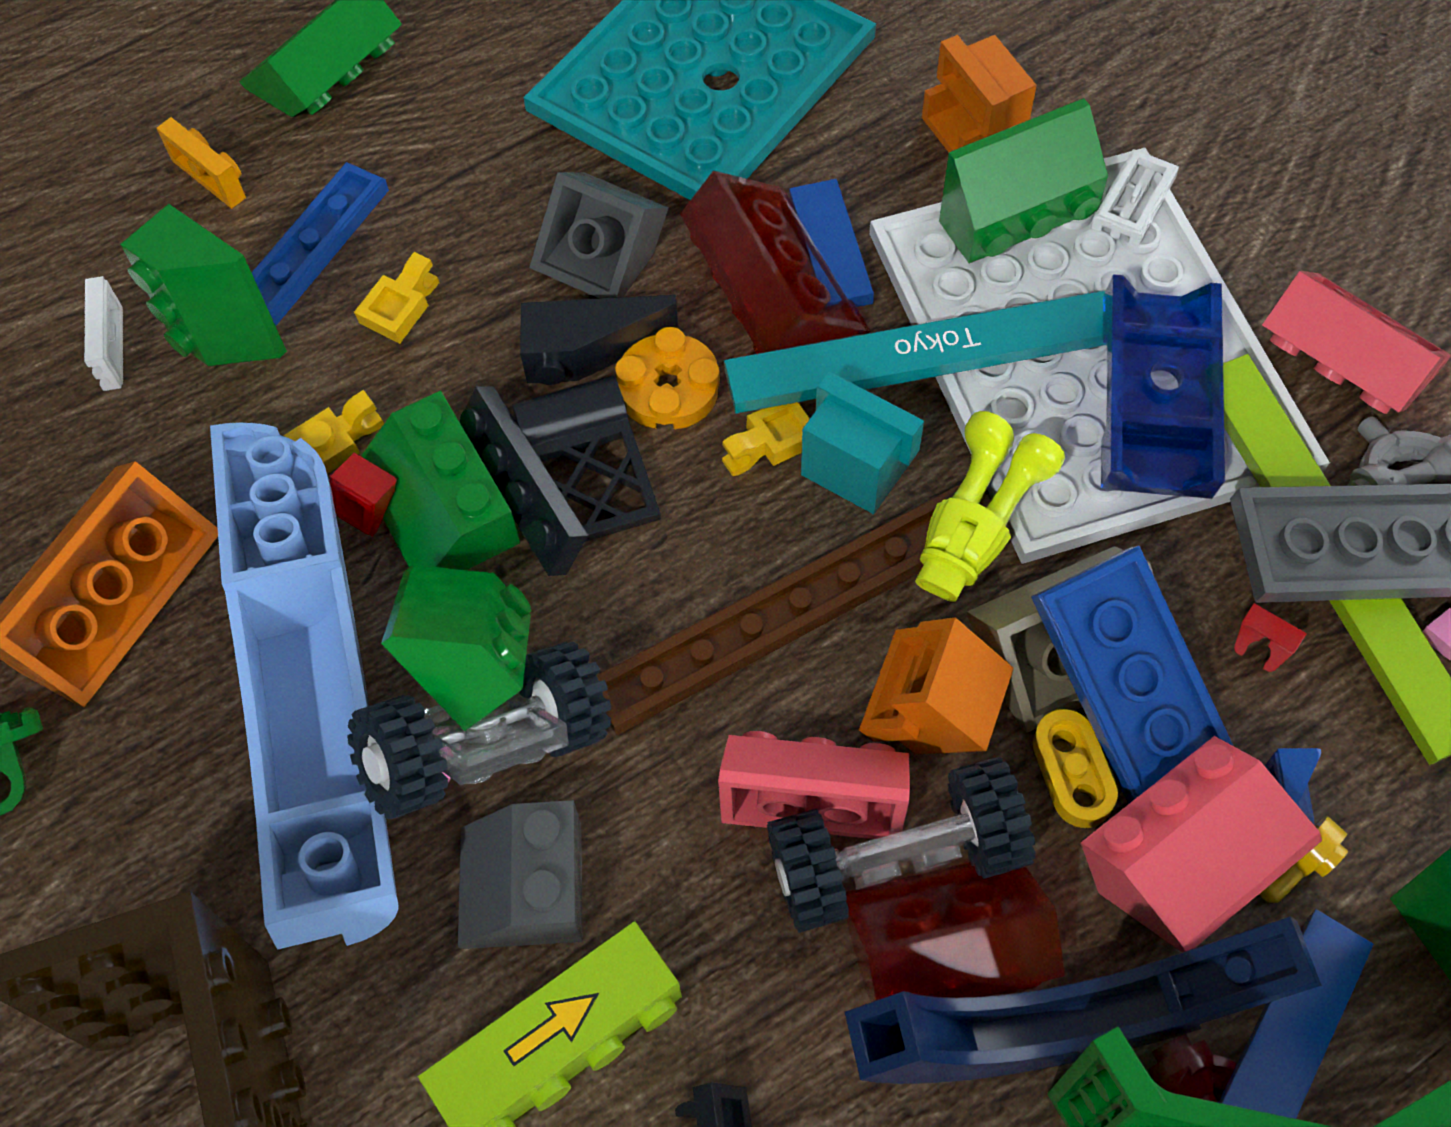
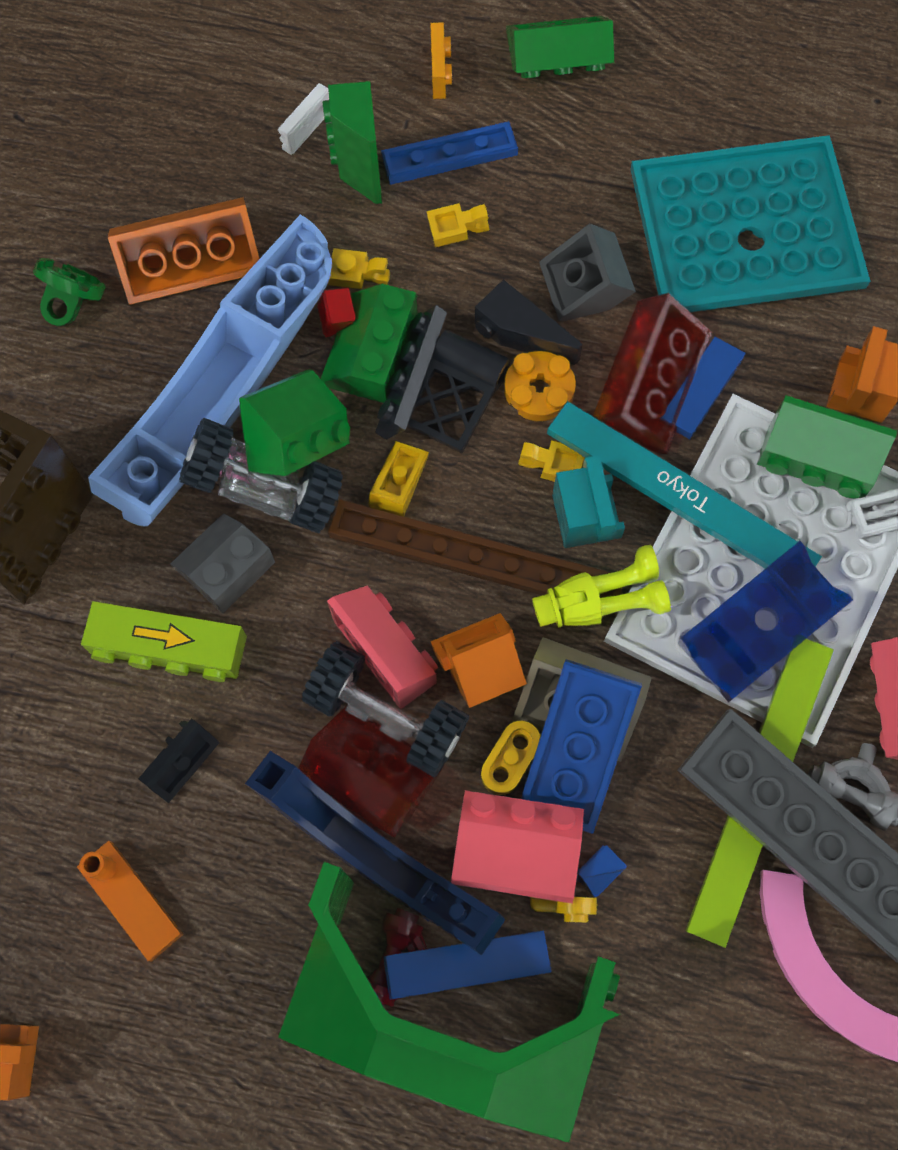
camera: 45 degrees right, 10 degrees up
(624, 604) = (398, 479): none -> yellow slope
(1282, 635) = (683, 795): red tile -> none

